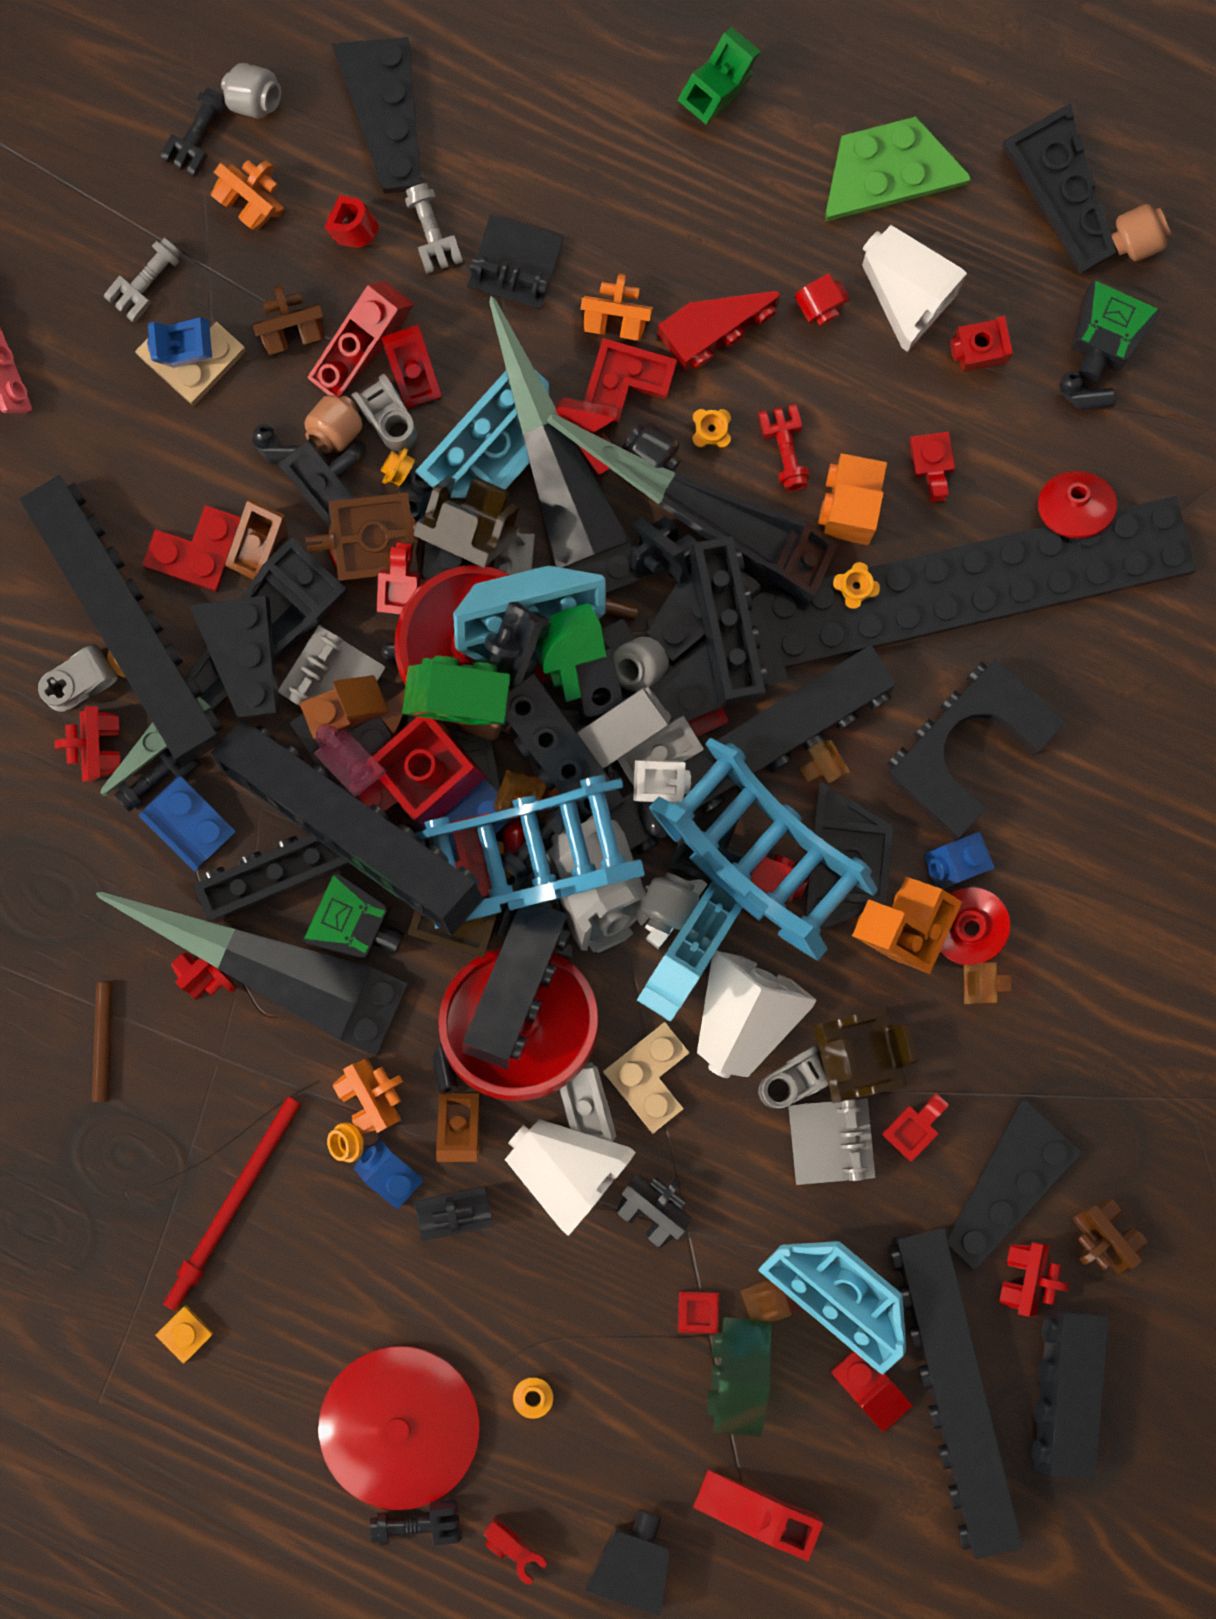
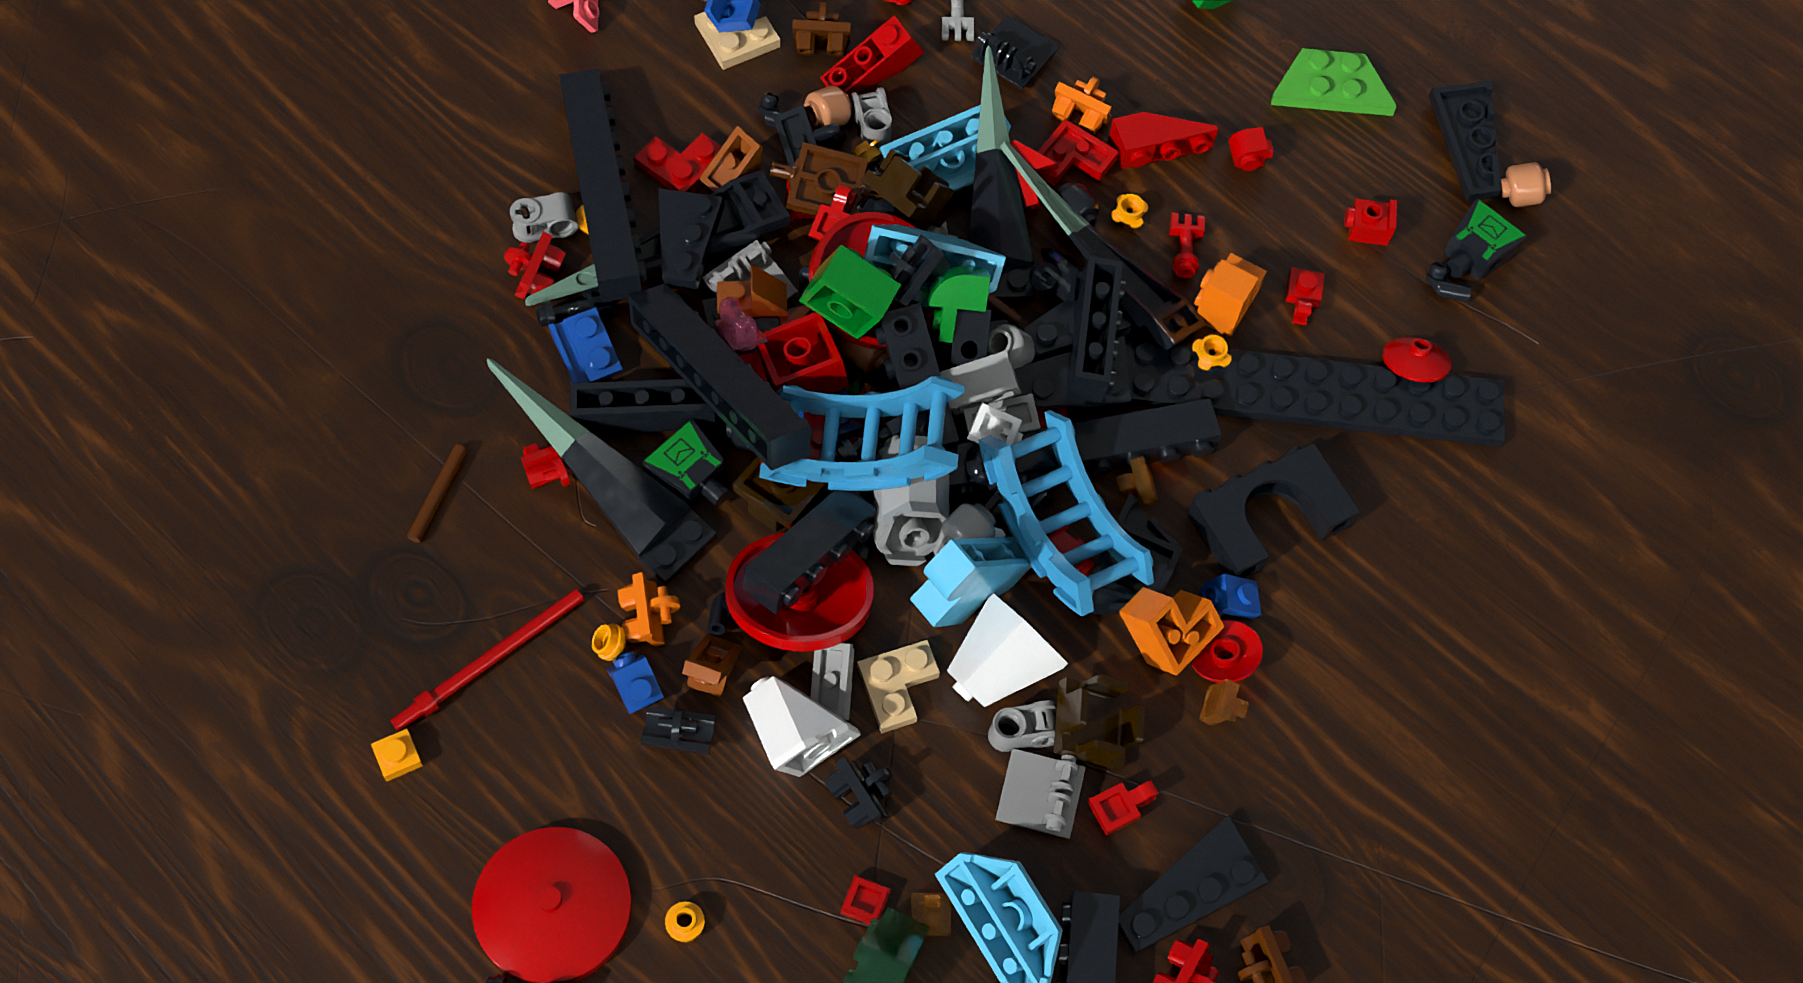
camera: 15 degrees right, 20 degrees down
(411, 366) = (905, 88): red slope -> none
(910, 282) = (1328, 159): white slope -> none

